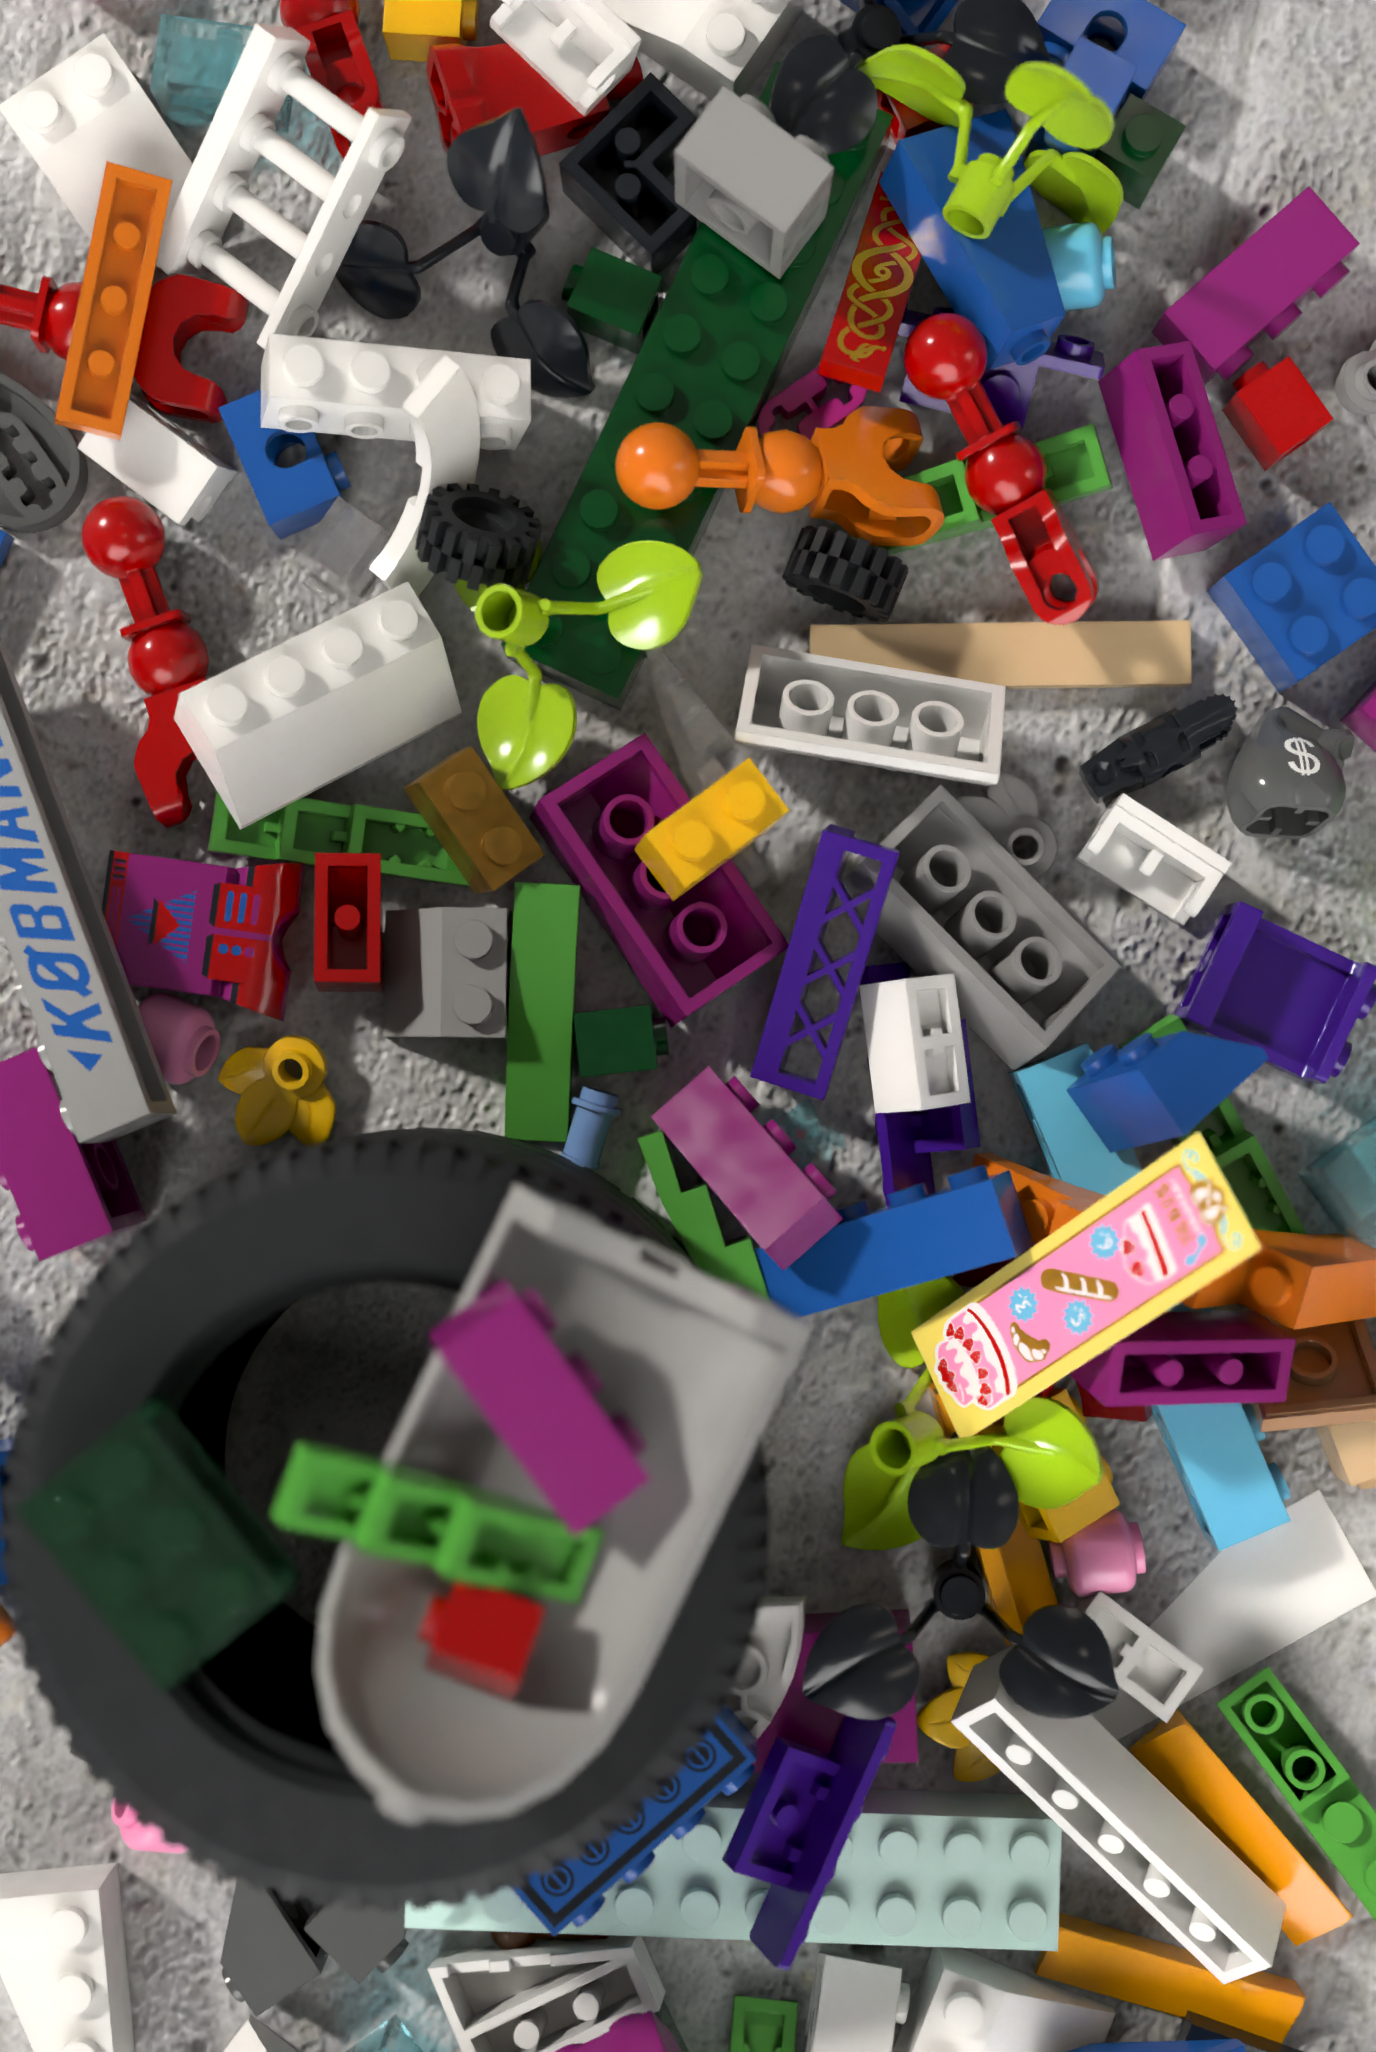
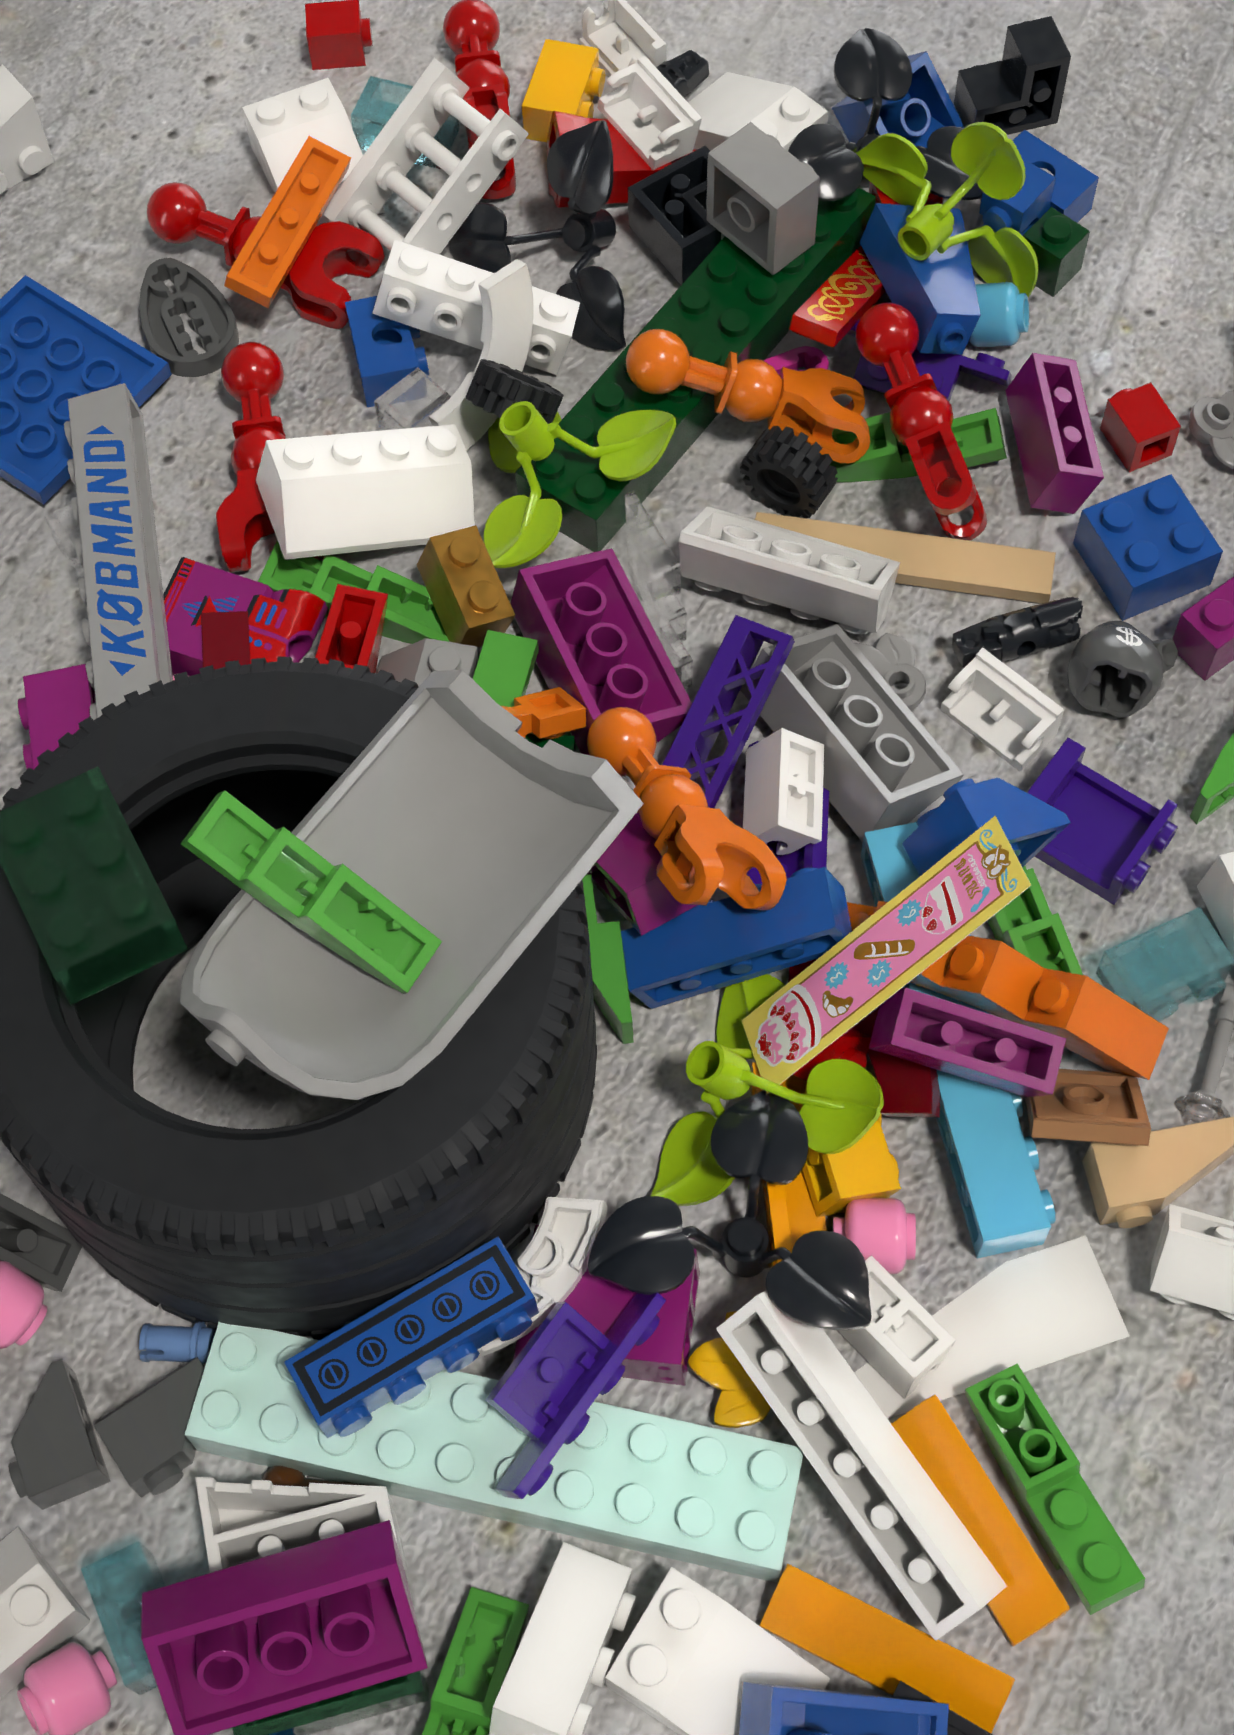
camera: 15 degrees right, 25 degrees down
(161, 463) = (294, 337): white hinge -> none
(200, 973) = (225, 638): none -> dark red sticker
(480, 1637) = (323, 986): red brick -> none
(542, 1404) = (415, 814): magenta brick -> none
(607, 991) = (548, 713): none -> orange plate
(613, 299) = (648, 283): dark green brick -> none
(711, 829) = (647, 604): yellow brick -> none
(838, 1179) = (696, 842): none -> orange piece
(1260, 286) = (1138, 344): magenta brick -> none

